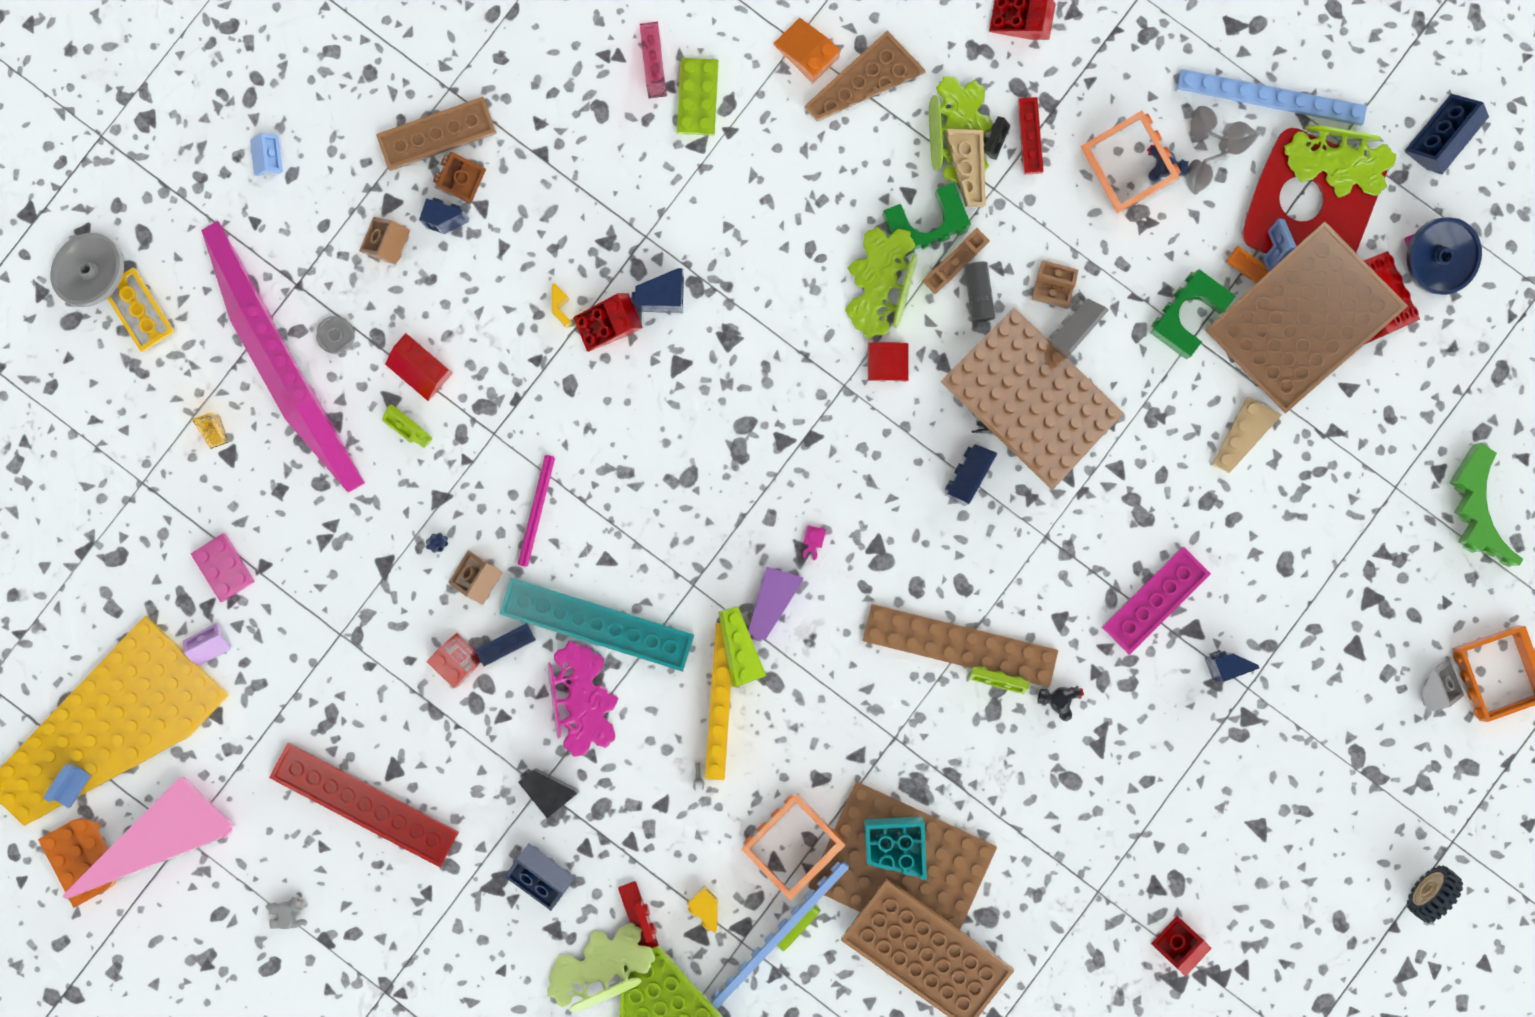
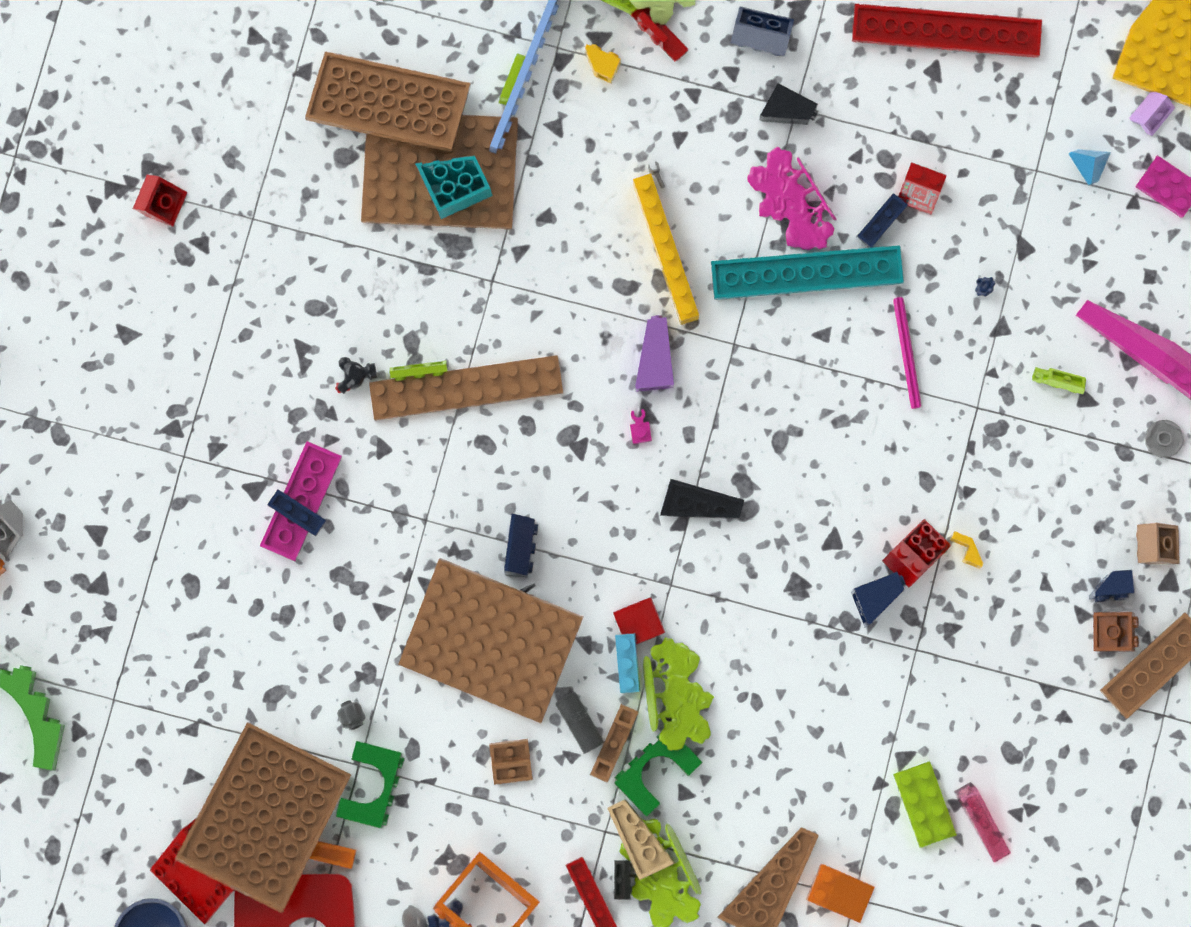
camera: 160 degrees right, 5 degrees down
(286, 619) = (1090, 163): none -> dark azure slope
(417, 367) = (1074, 440): red slope -> none
(475, 577) = (936, 269): medium nougat slope -> none
(740, 651) = (667, 300): lime wing -> none
(789, 450) = (694, 501): none -> black wing
(790, 801) = (532, 178): orange window -> none
(913, 328) = (627, 663): none -> medium azure plate
(1077, 326) = (475, 725): light grey slope -> none
(1166, 589) = (296, 512): none -> dark blue plate
(1185, 383) = (351, 715): none -> dark grey head
(1227, 666) = (211, 466): dark blue slope -> none
(1247, 429) = (275, 695): tan wing -> none
(1282, 244) = (310, 881): medium blue plate -> none

